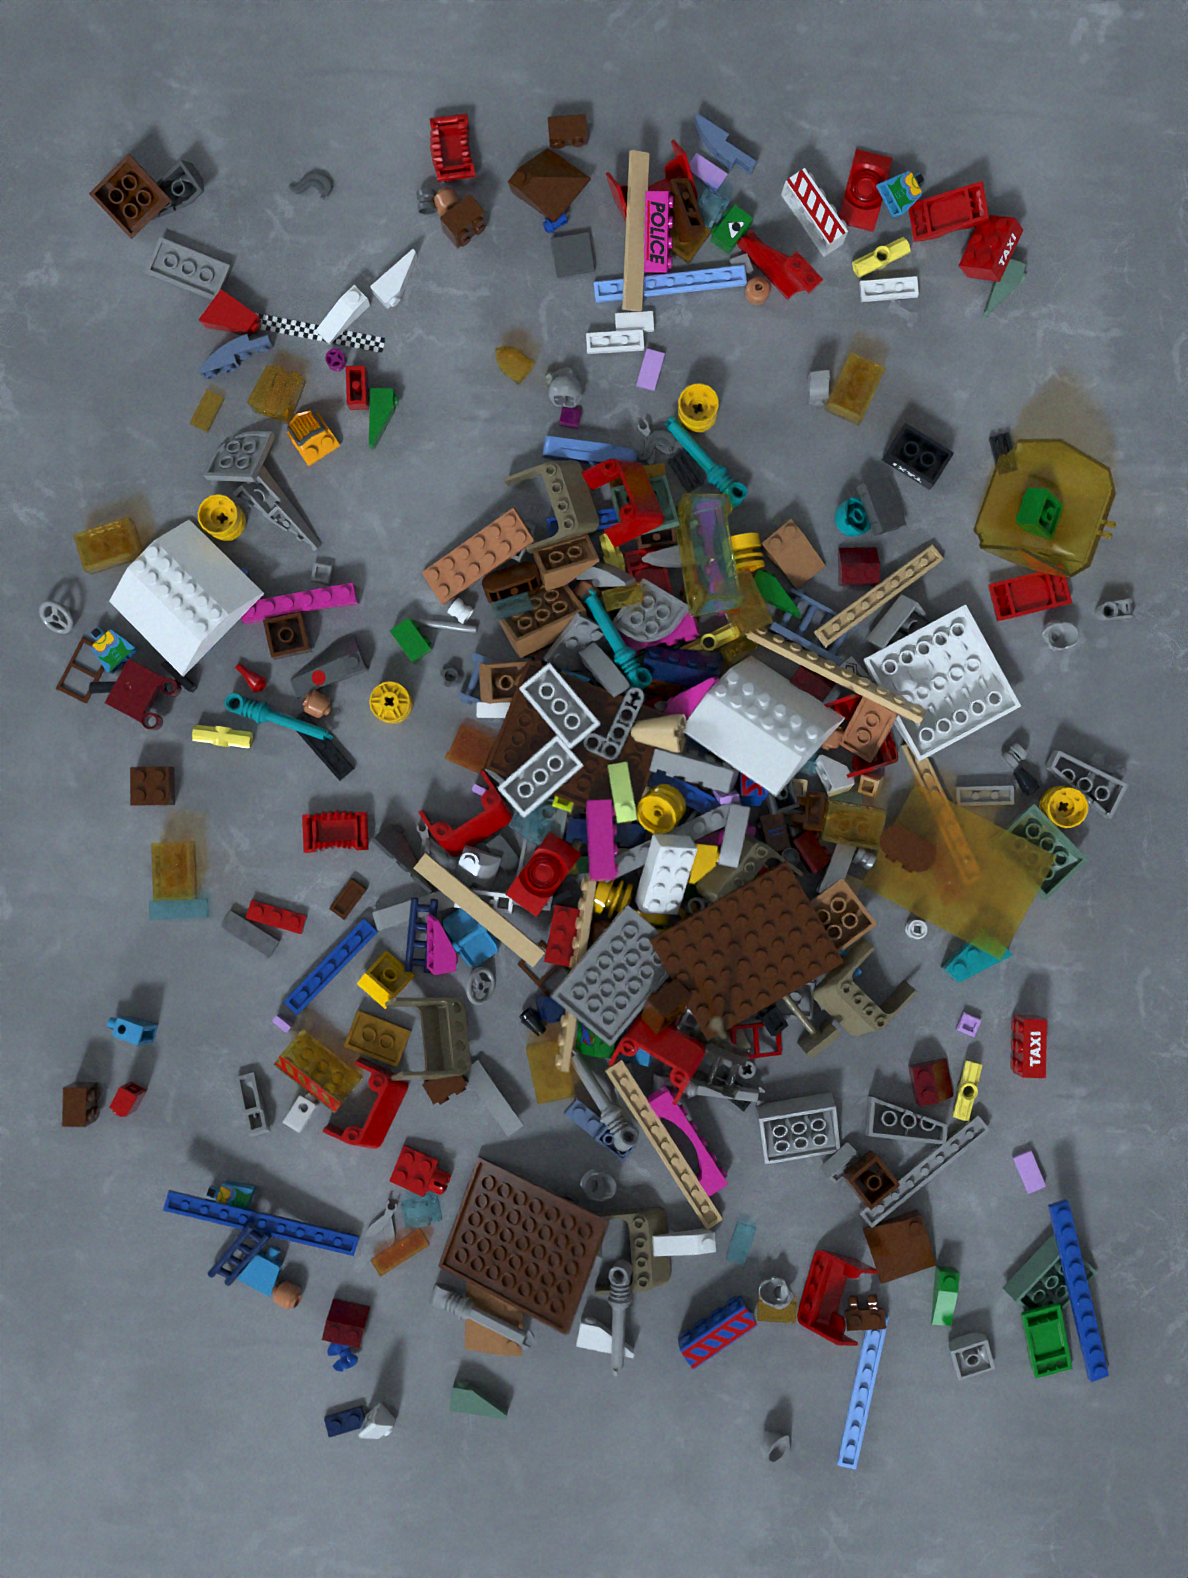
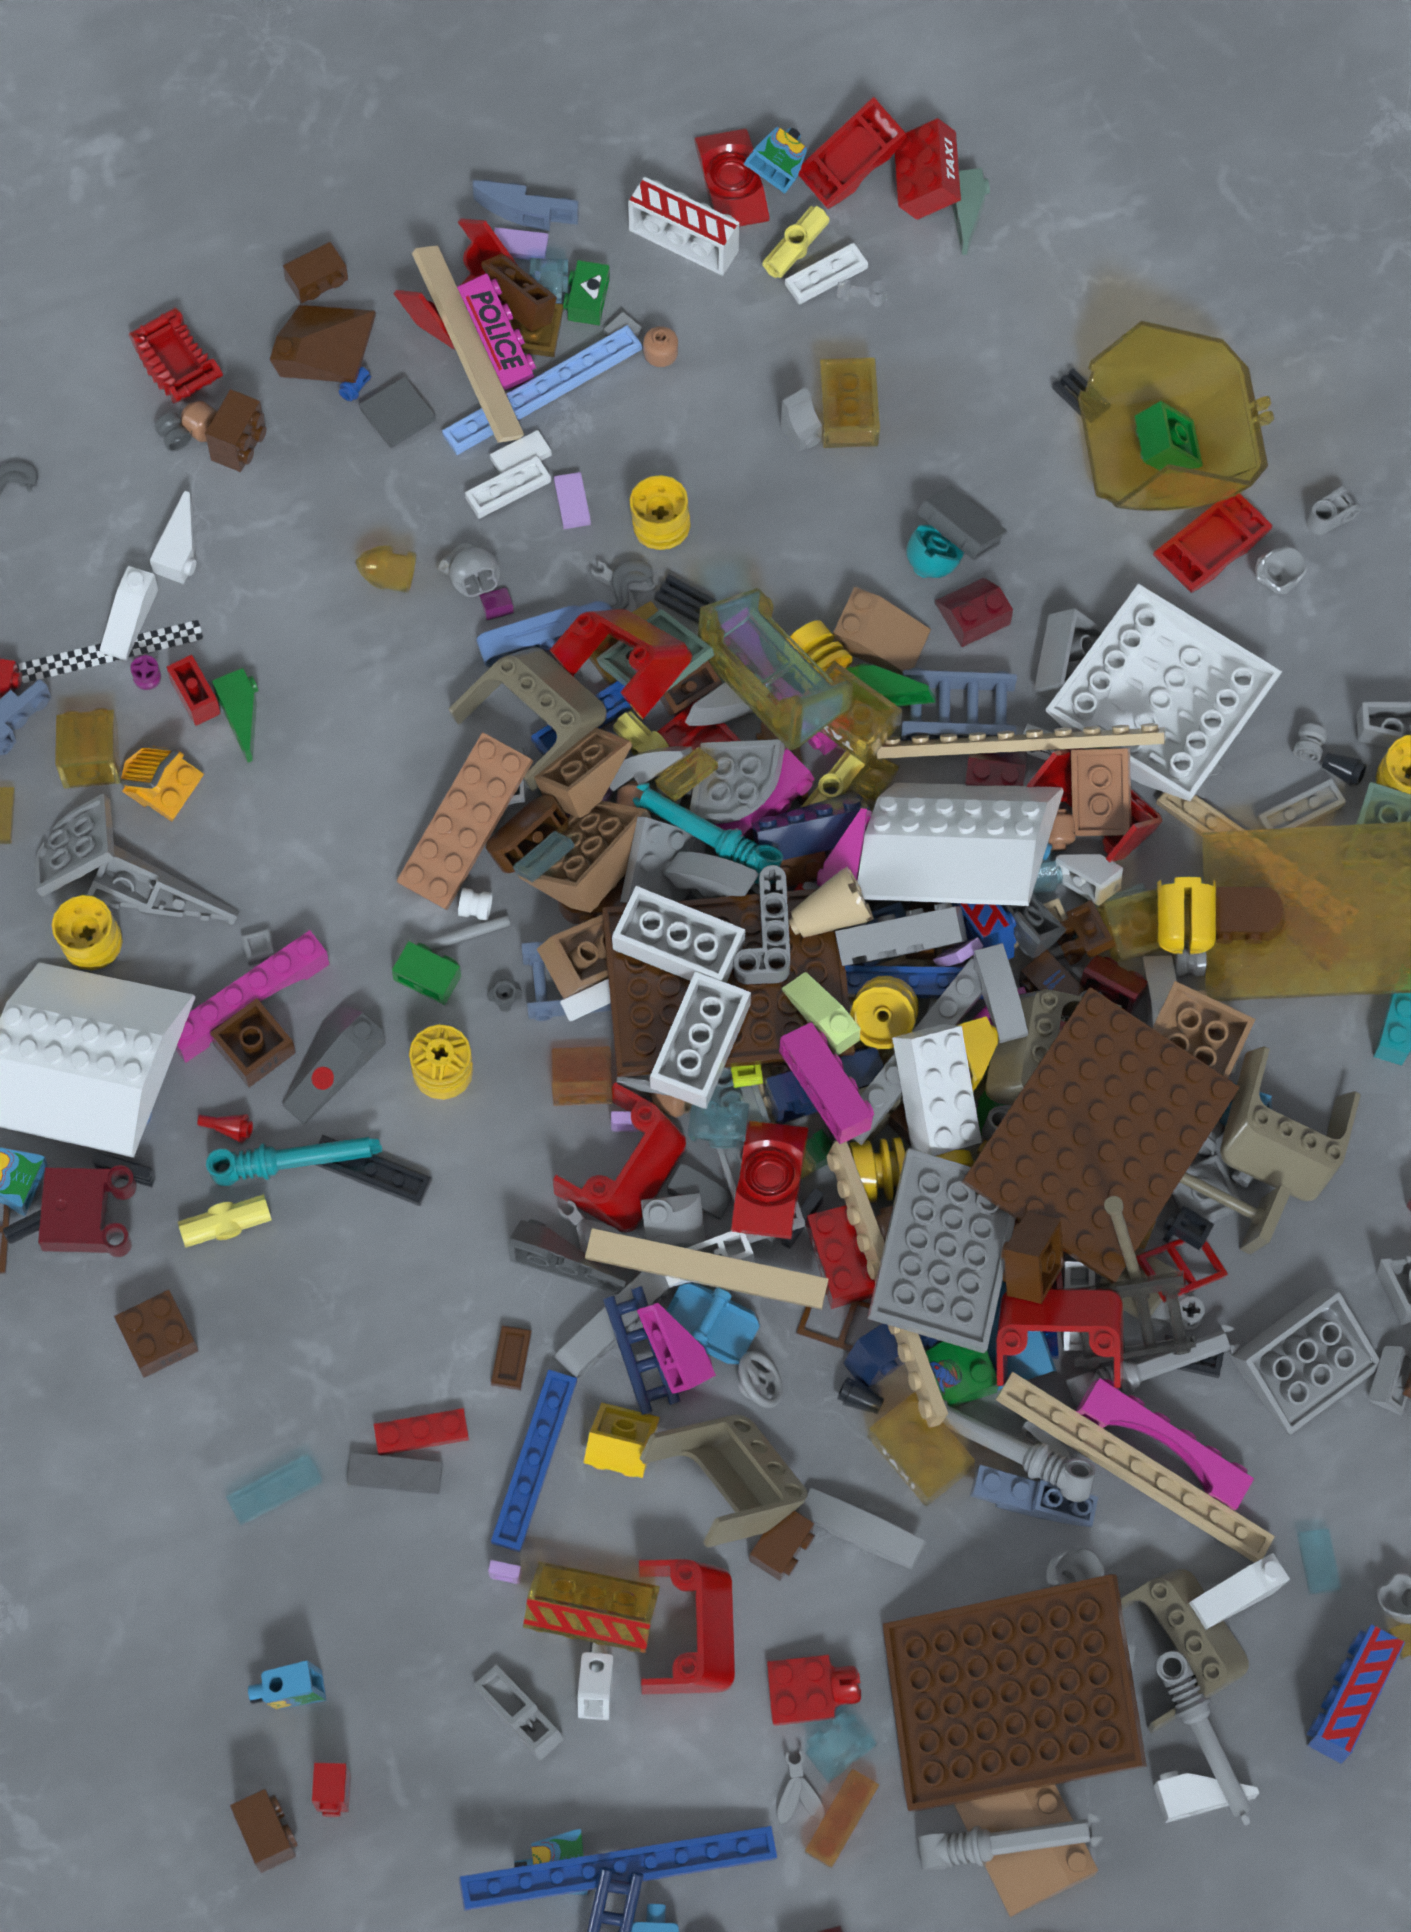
camera: 25 degrees left, 20 degrees down
(174, 871) = (244, 1432): clear yellow brick -> none
(316, 704) = (337, 1115): nougat head -> none
(335, 830) = (447, 1270): red piece -> none
(377, 1038) = (652, 1527): pearl gold plate -> none
(715, 472) = (726, 581): teal piece -> none
(784, 272) = (682, 302): red piece -> none
(870, 784) = (1144, 867): tan slope -> none
(878, 595) = (1020, 629): tan tile -> none
(881, 843) = (1201, 915): none -> yellow cylinder
(912, 928) = (1307, 1024): white wheel -> none
(917, 456) = (974, 444): black brick -> none

